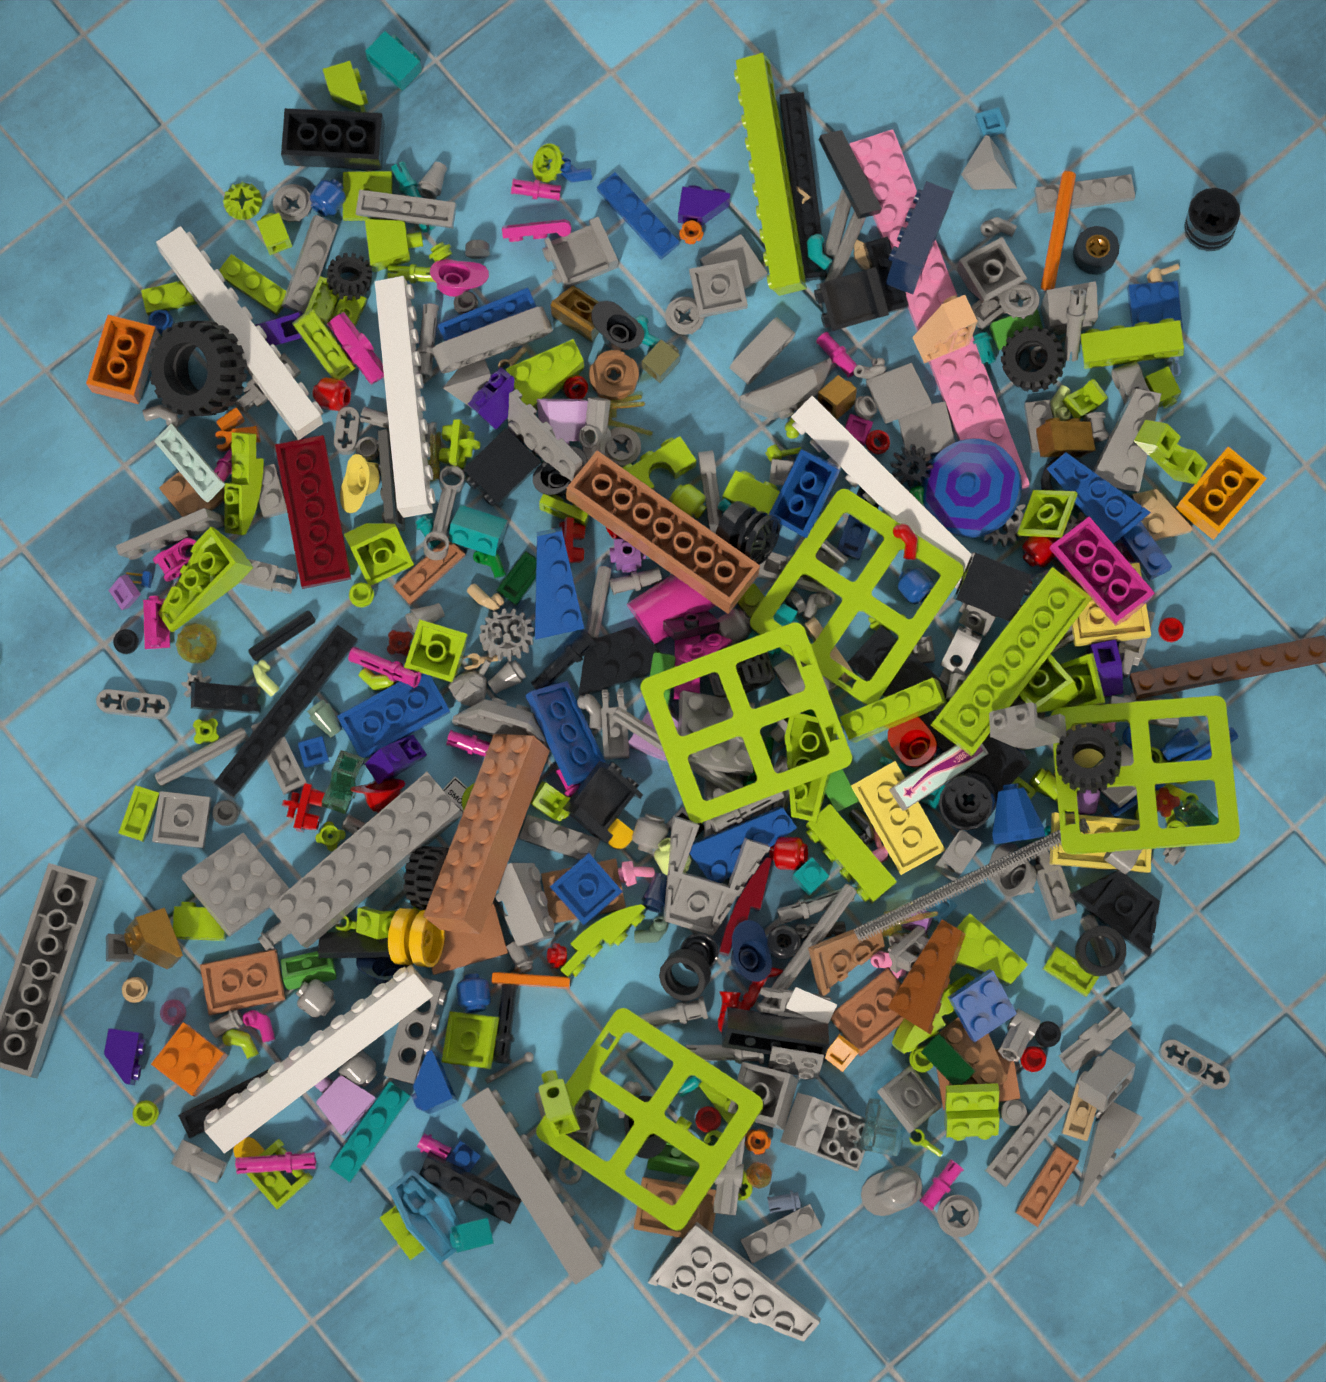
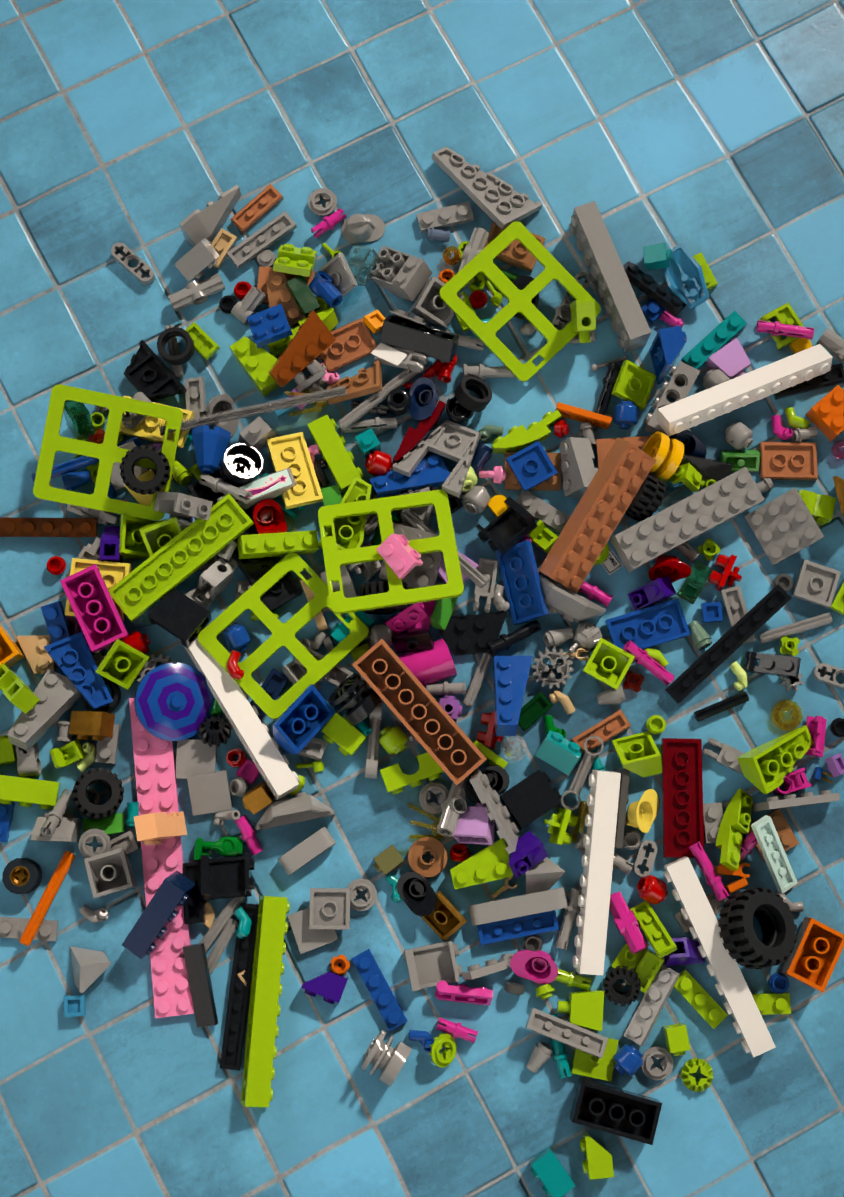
camera: 170 degrees left, 0 degrees up
(266, 426) = (709, 872): none -> dark pink pin
(510, 263) = (492, 966): none -> light grey hinge
(533, 521) = (513, 748): none -> clear piece
(612, 138) = (386, 1058): none -> light grey wheel
(731, 714) = (399, 554): none -> bright pink bracket
(863, 336) = (224, 846): none -> green piece
(926, 1082) = (322, 286): none -> blue piece
(990, 768) = (218, 485): none -> light grey pin

